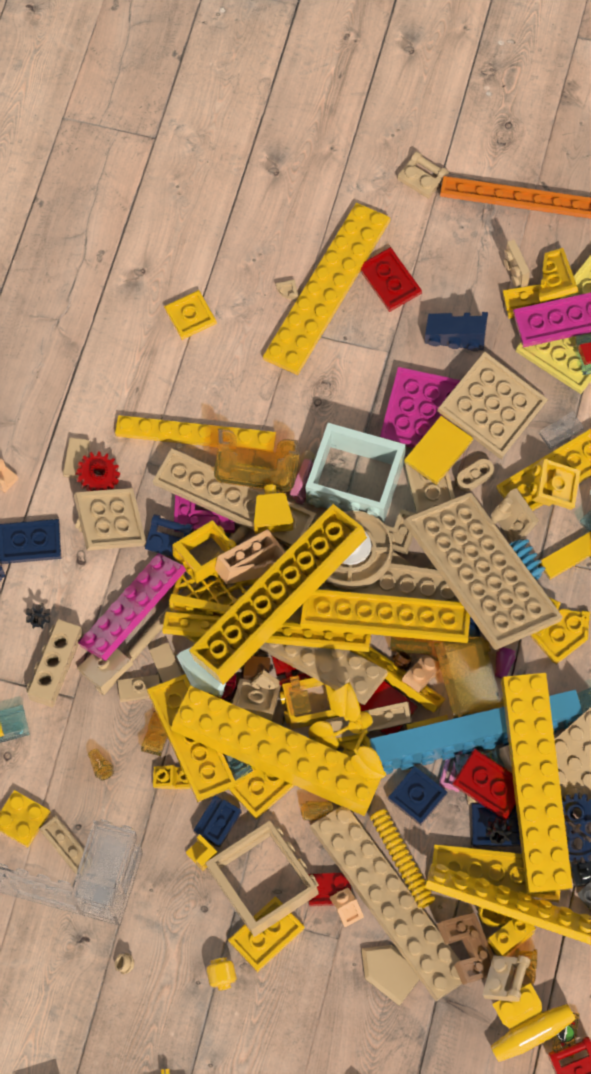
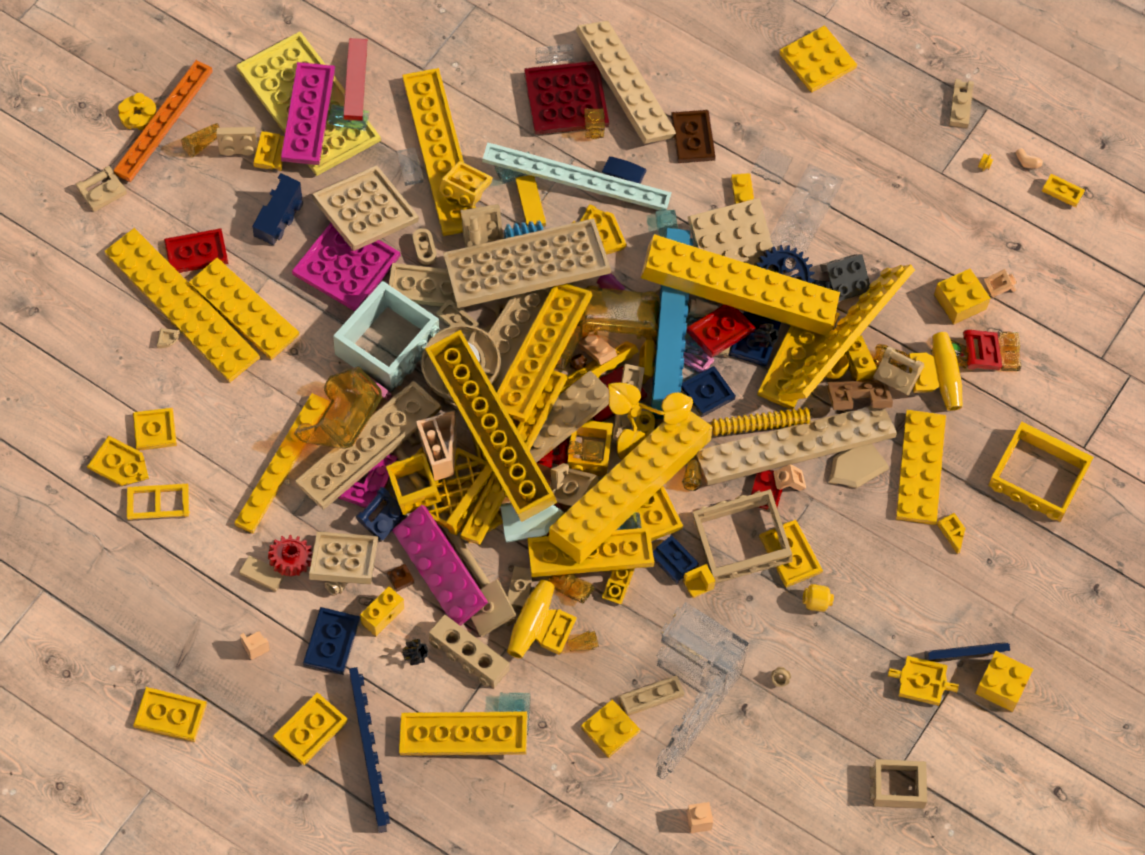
camera: 80 degrees left, 5 degrees down
(69, 572) = (382, 611): none -> yellow brick
(104, 718) = (537, 622): none -> yellow plate
(105, 349) = (157, 489): none -> yellow window
(113, 578) = (400, 577): none -> reddish brown tile
(144, 298) = (119, 462): none -> yellow tile
(165, 662) = (506, 557): tan tile -> none
(272, 511) = (400, 411): yellow torso -> none
(342, 341) = (244, 308): none -> yellow plate
(413, 1038) = (921, 467): none -> yellow plate
(438, 450) = (391, 263): yellow tile -> none
(504, 232) = (199, 140): none -> clear yellow slope
(521, 163) = (133, 103): none -> yellow plate
(557, 276) = (261, 114): yellow wing -> none

